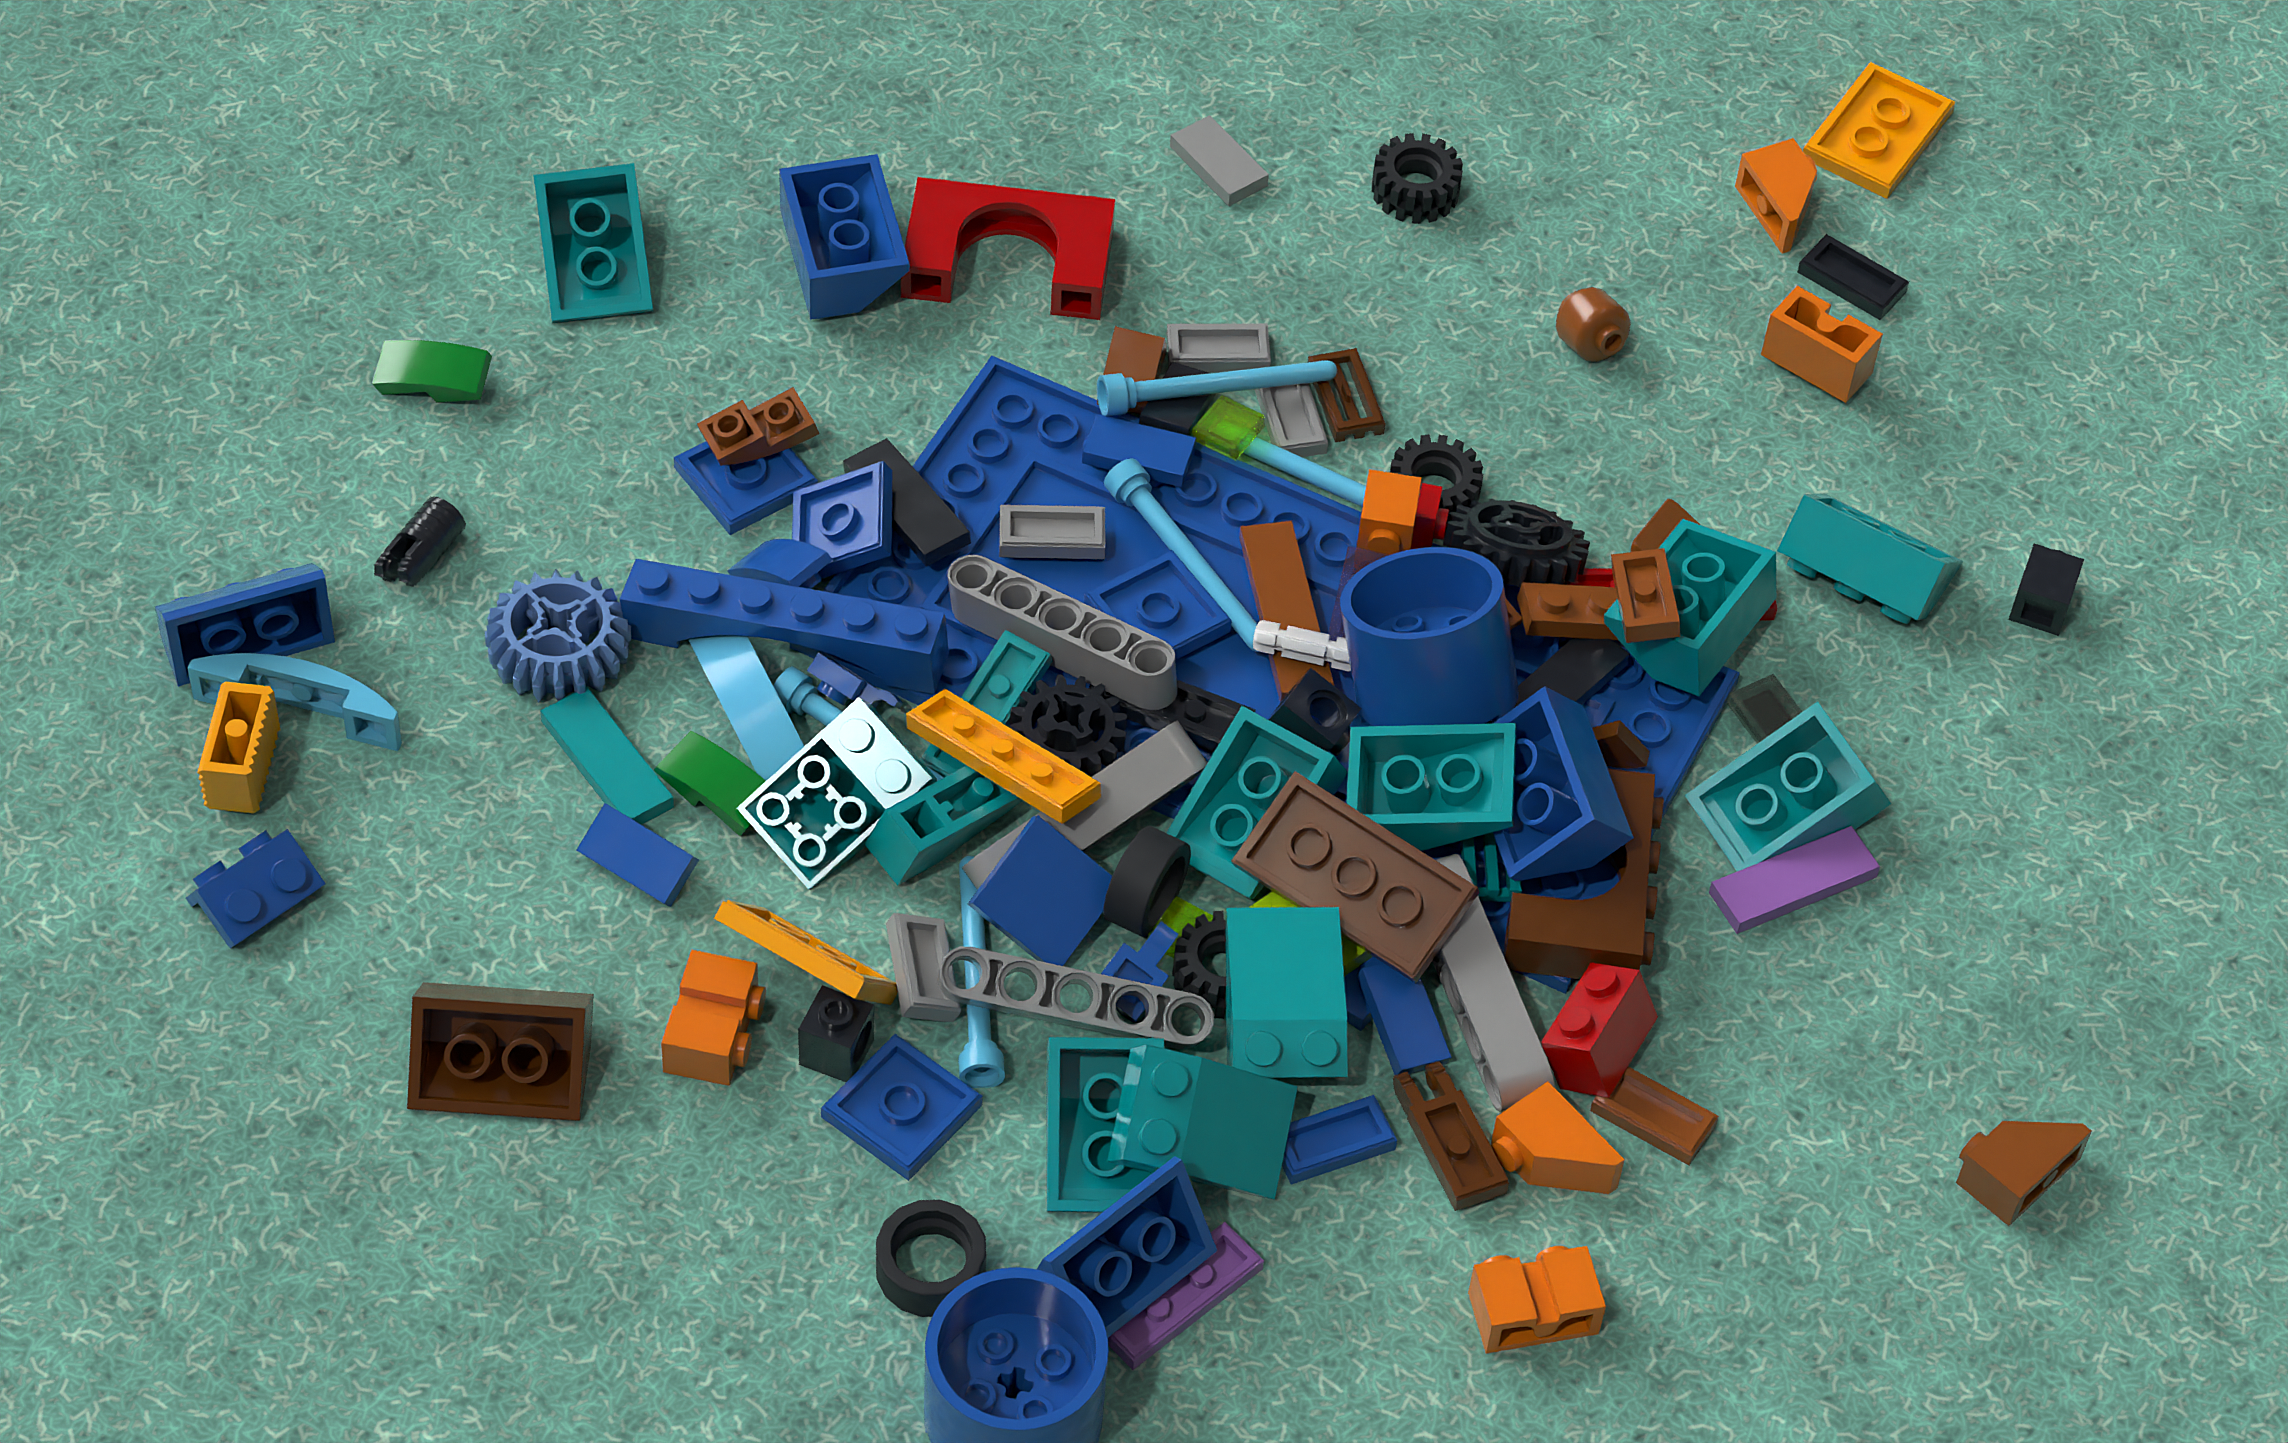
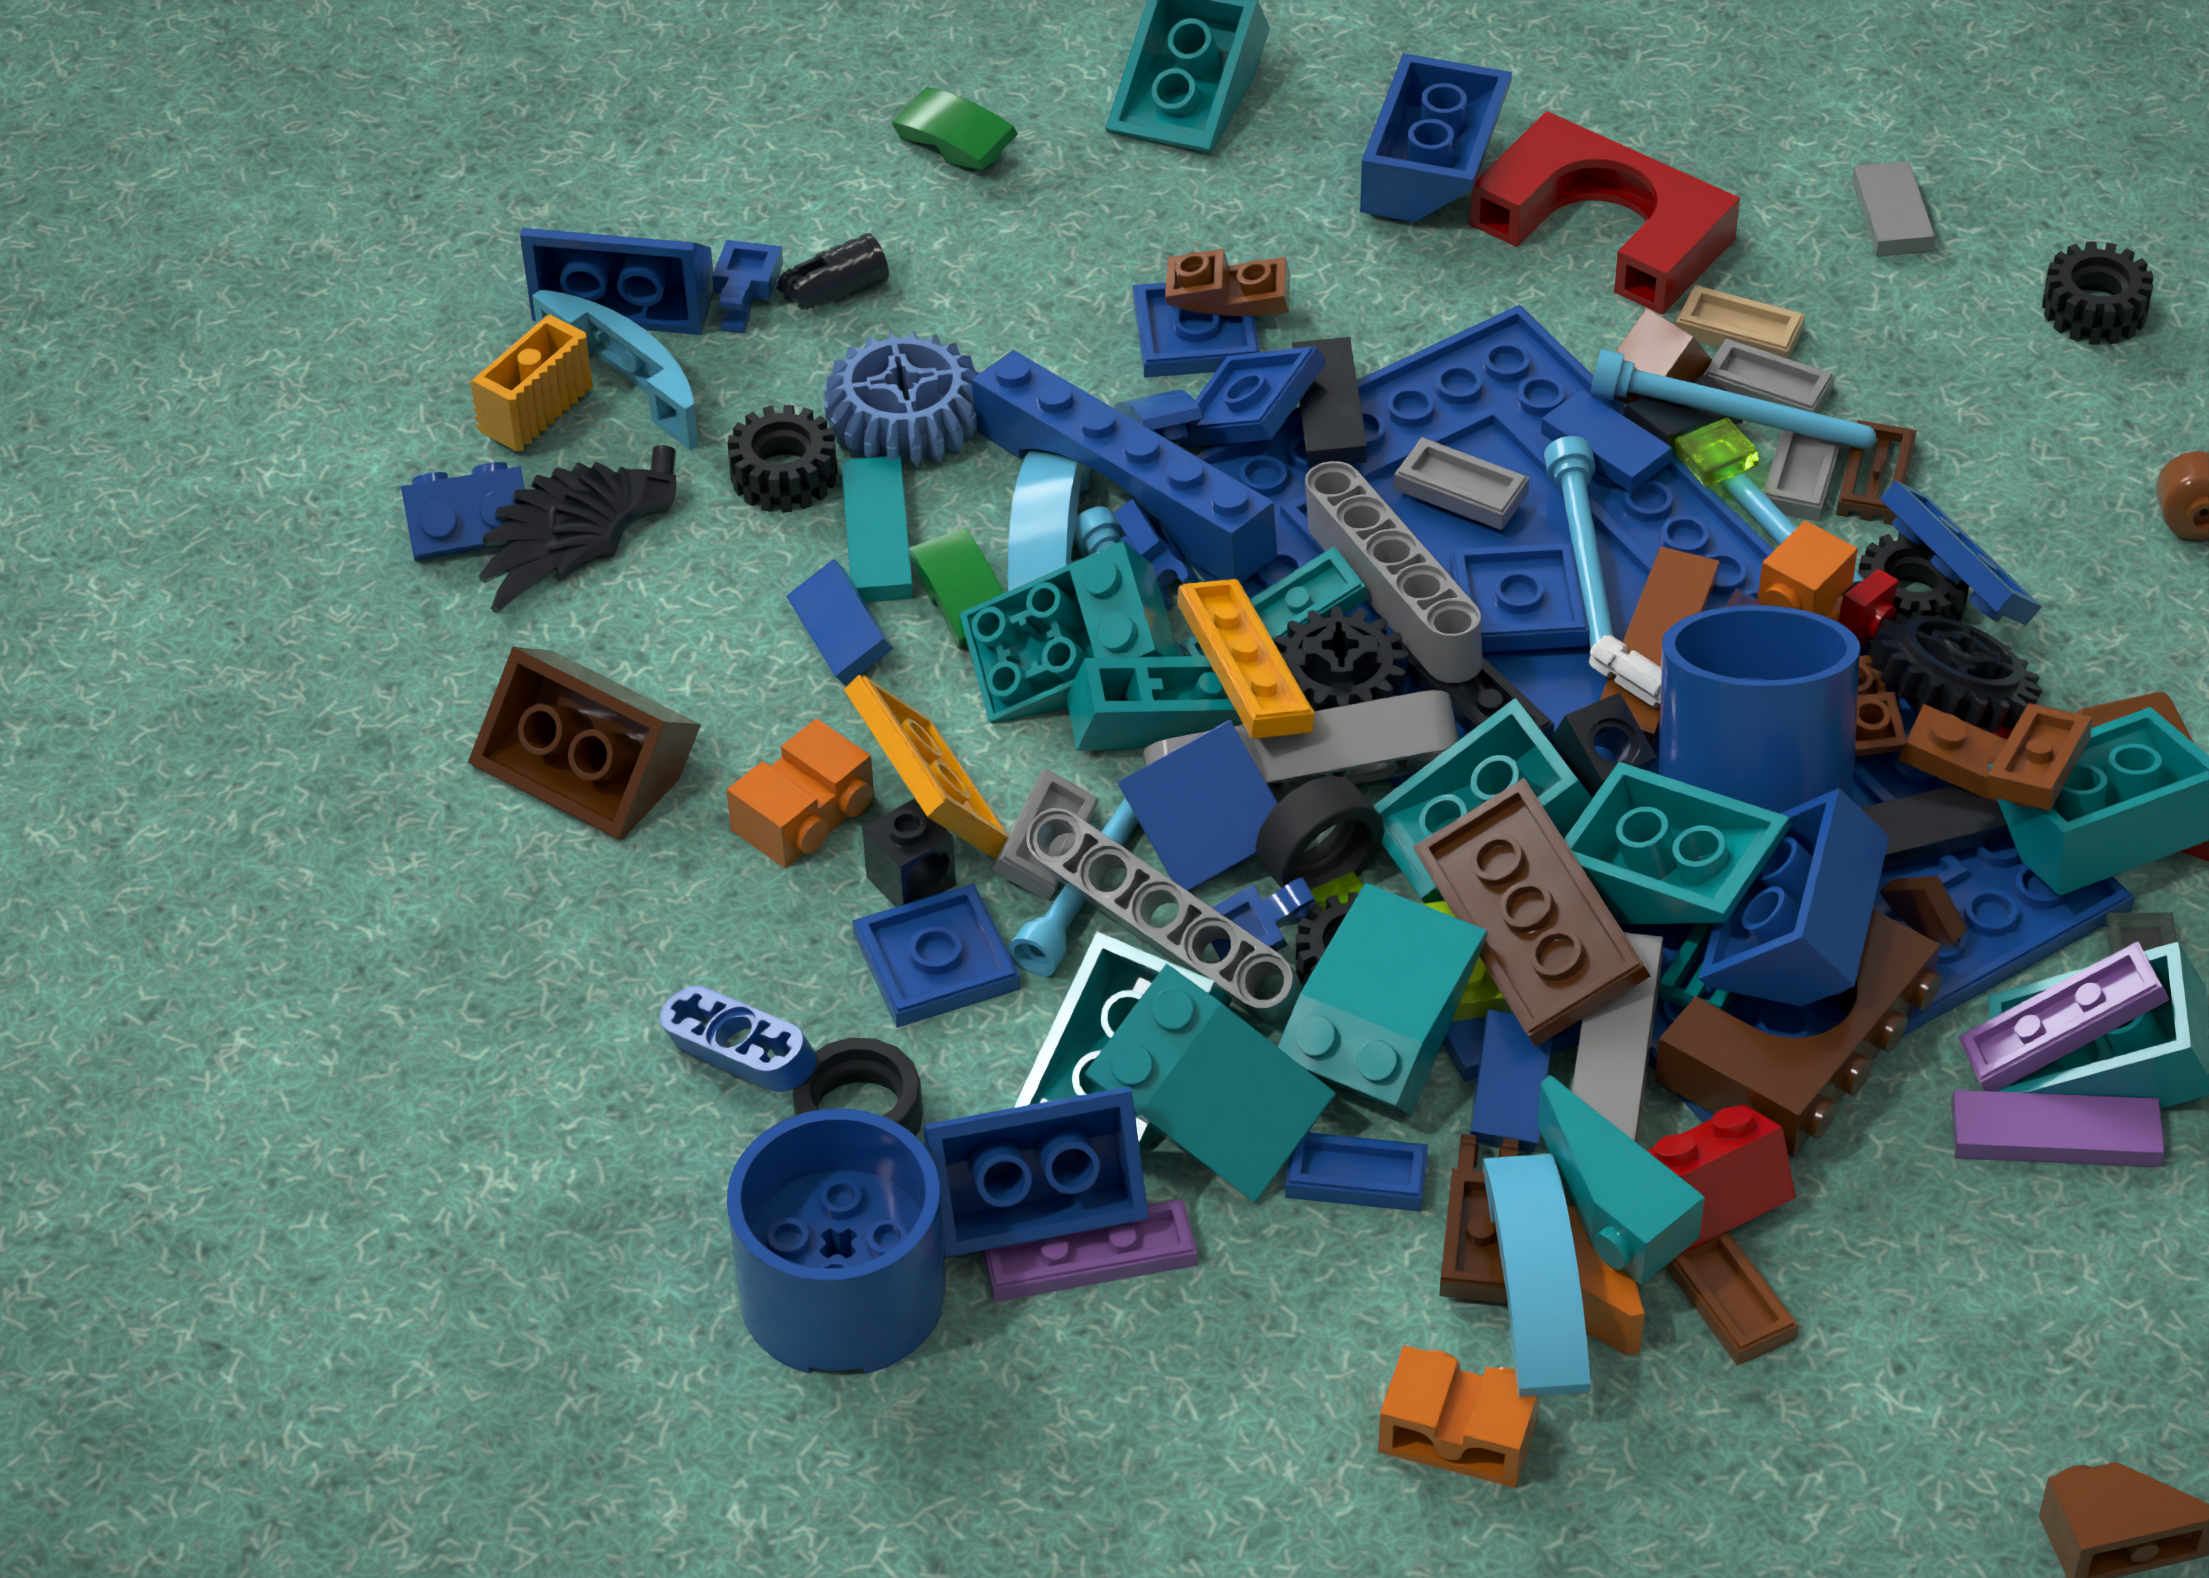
camera: 35 degrees right, 5 degrees down
(347, 576) = (742, 274): none -> blue plate
(355, 857) = (573, 520): none -> black animal
(488, 704) = (782, 481): none -> black tyre
(827, 1264) = (749, 1058): none -> blue beam
(1155, 305) = (1717, 315): none -> tan tile
(1470, 448) = (1958, 555): none -> blue plate
(1542, 1159) = (1539, 1275): none -> medium azure slope
(1555, 1072) = (1624, 1197): none -> teal slope
(1762, 793) = (2063, 1018): none -> medium lavender tile

